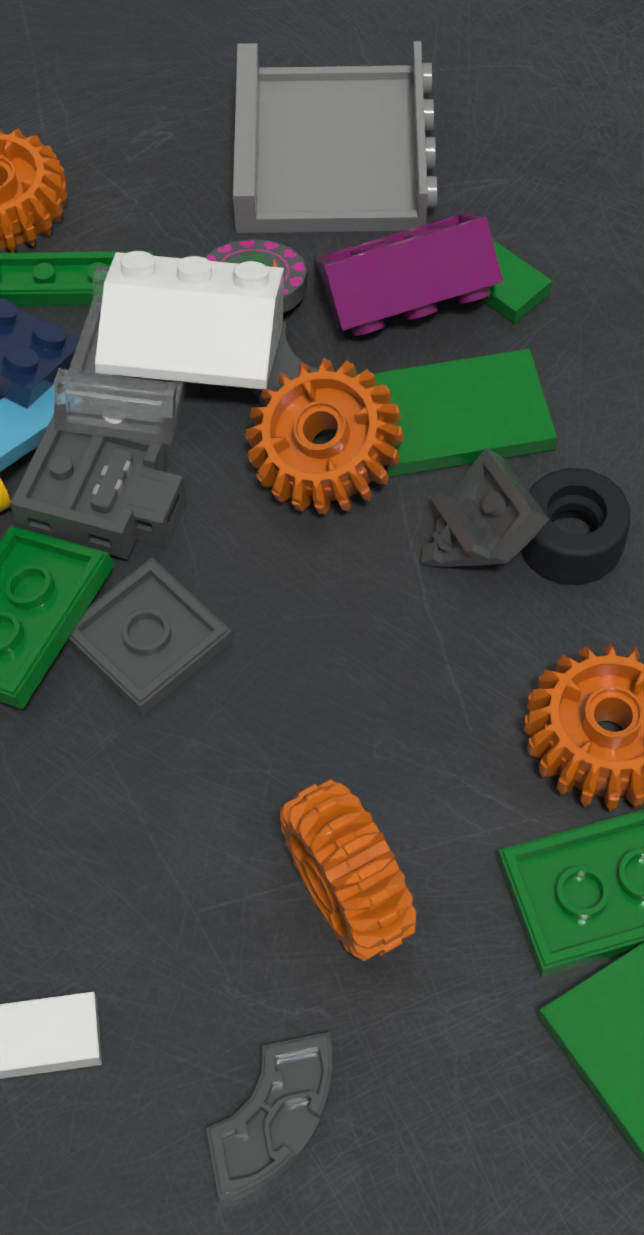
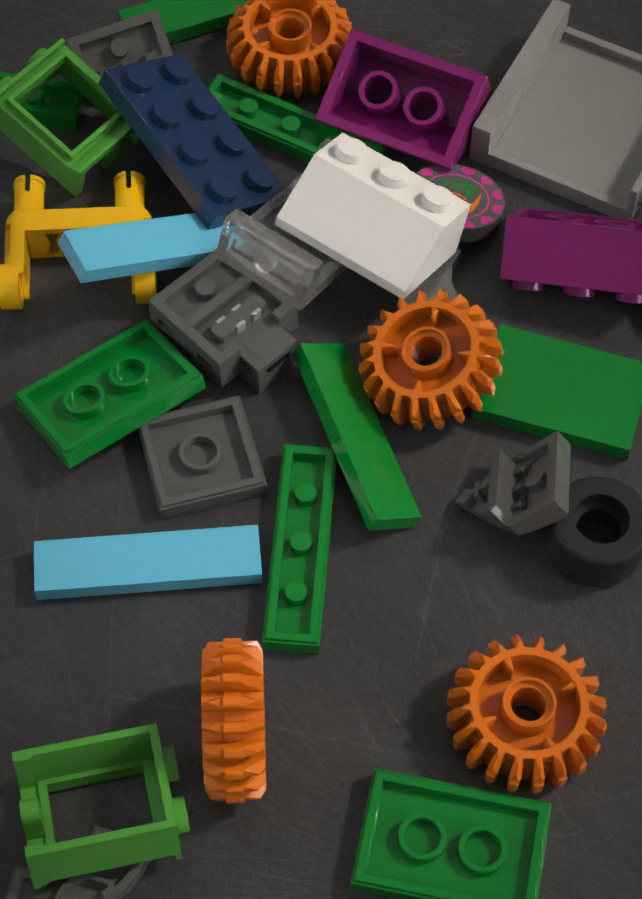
camera: 25 degrees right, 0 degrees up
(147, 198) = (404, 99): none -> magenta slope
(154, 764) = (147, 562): none -> medium azure tile
(224, 982) = (90, 762): none -> bright green window
(291, 543) = (356, 436): none -> green tile
(300, 677) = (300, 550): none -> green tile

